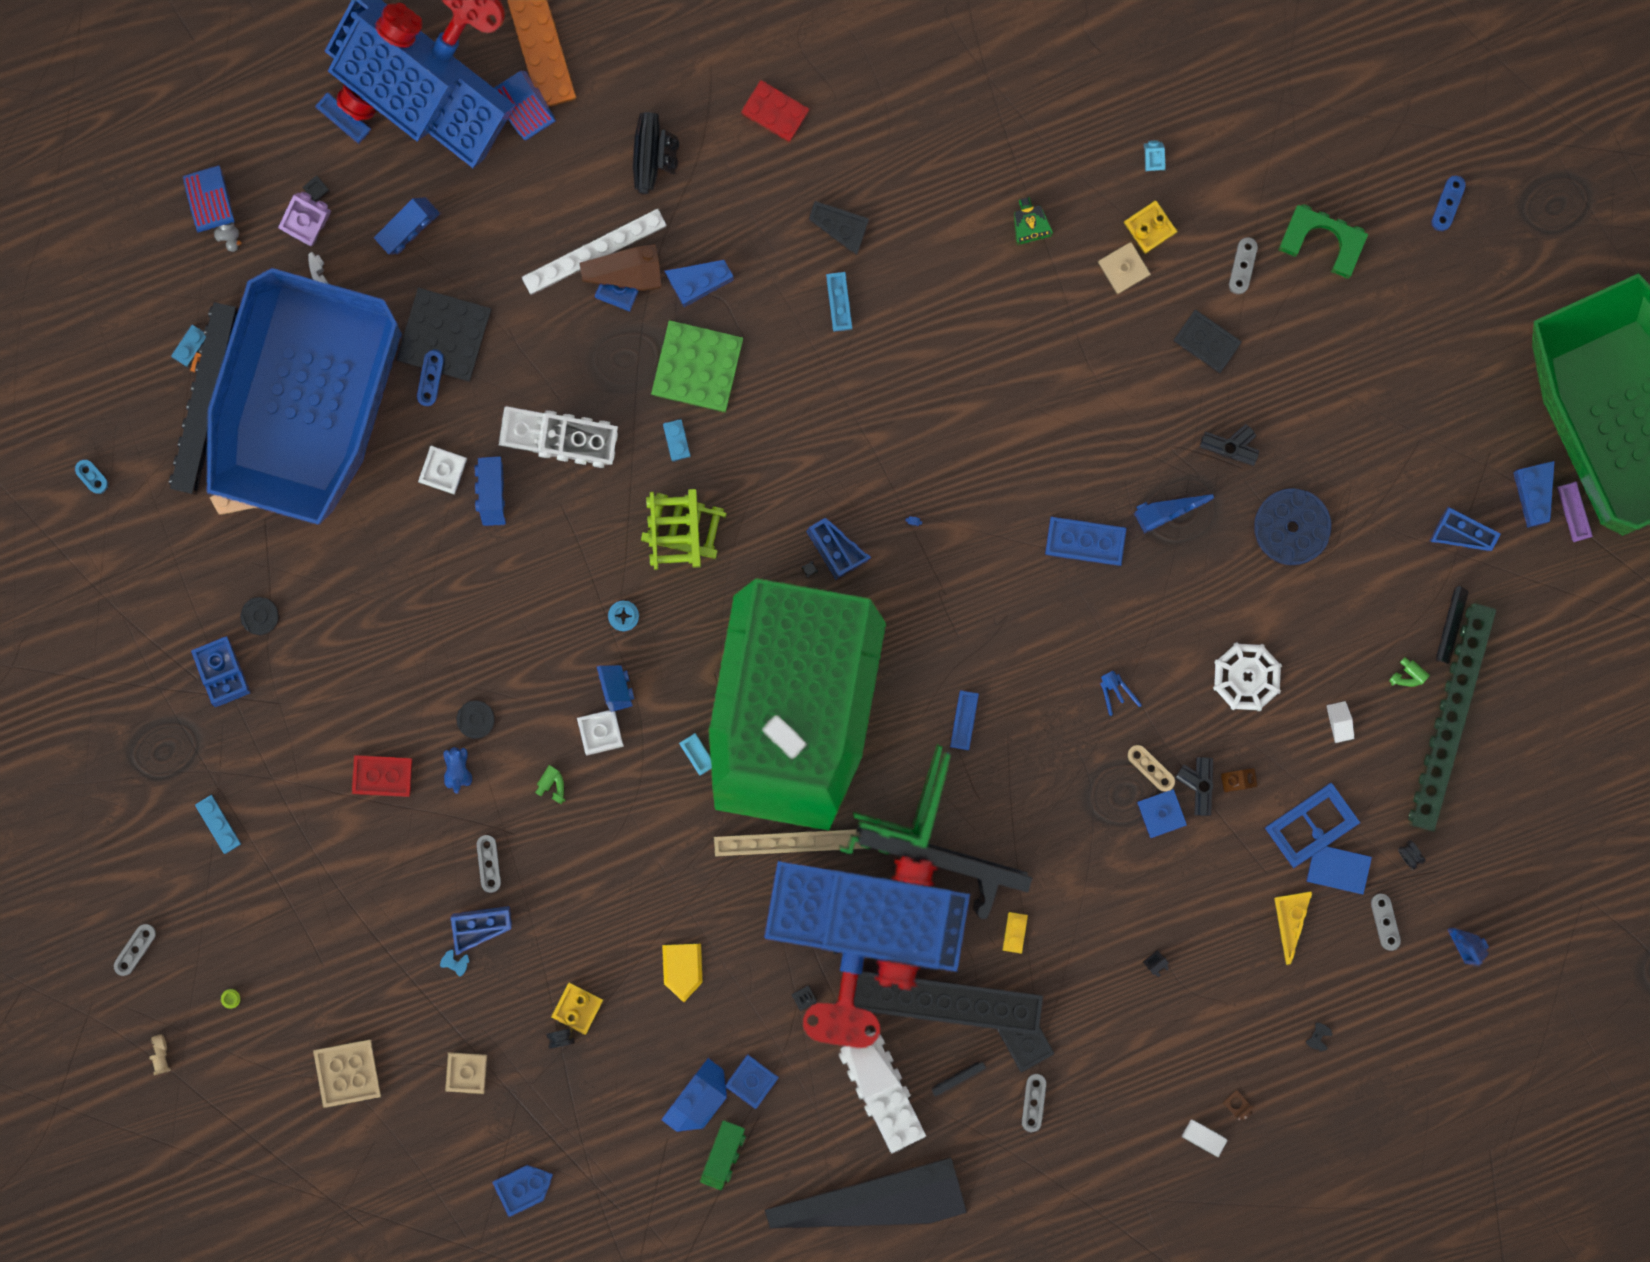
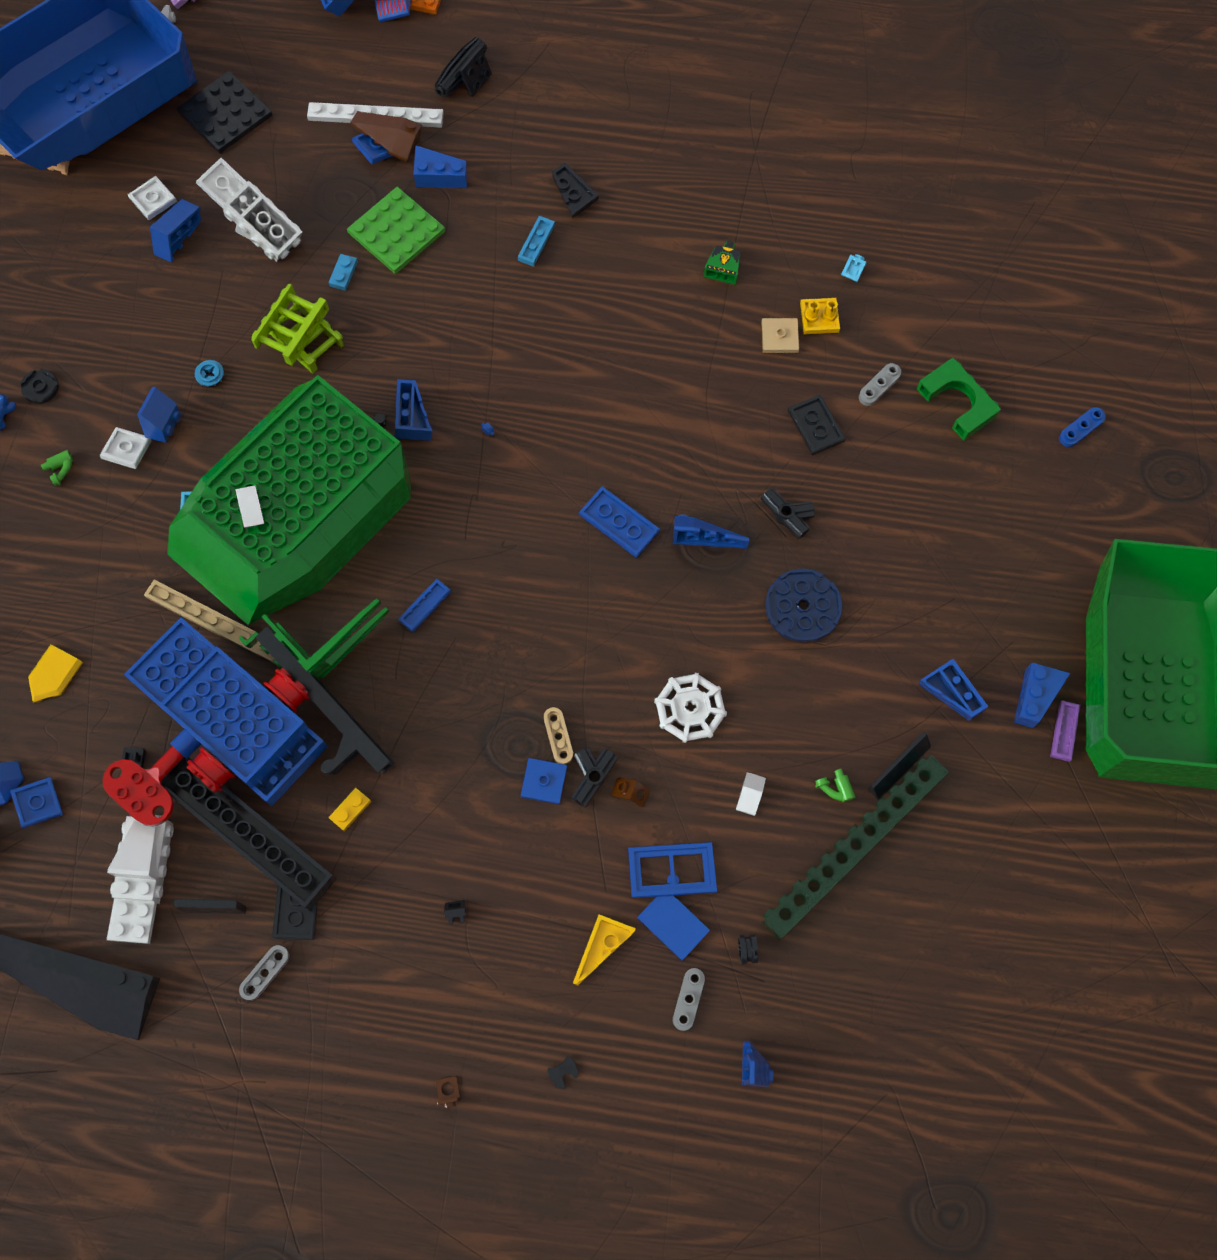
camera: 25 degrees right, 15 degrees down
(406, 225) = (251, 24): blue wedge -> none
(425, 383) = (184, 134): blue plate -> none
(775, 111) = (576, 93): red plate -> none
(1111, 681) = (569, 644): blue plant -> none
(1204, 1138) = (396, 1104): white slope -> none

